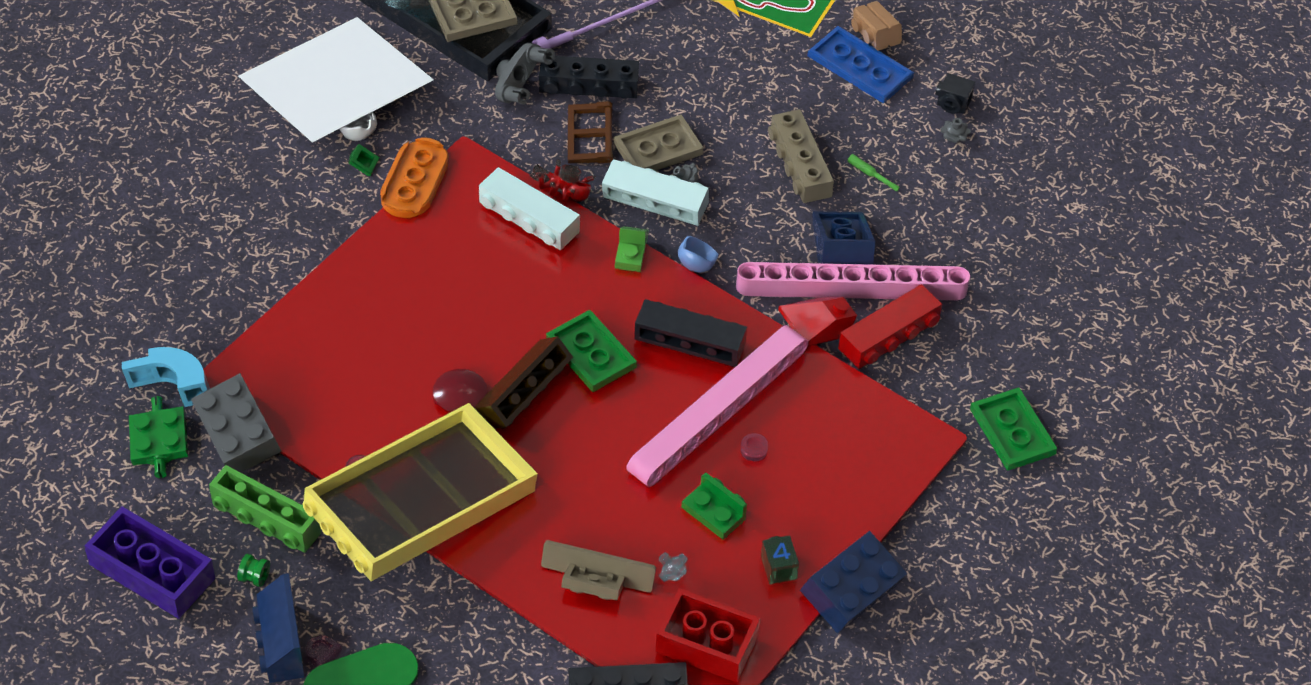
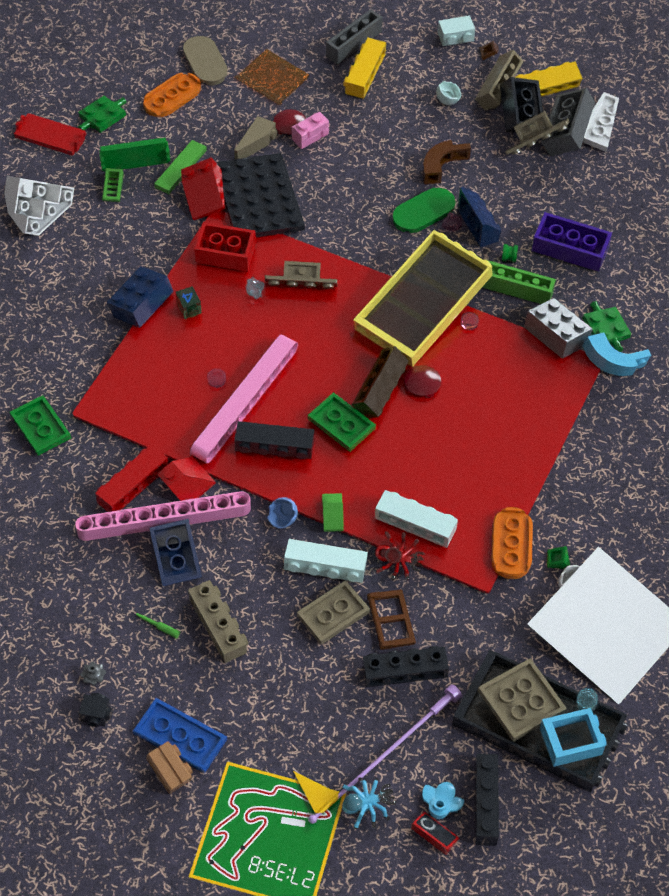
camera: 170 degrees right, 5 degrees up
(516, 71) = (466, 652): dark grey connector -> none
(687, 173) = (305, 585): dark grey plant -> none
(716, 506) = (235, 332): green bracket -> none

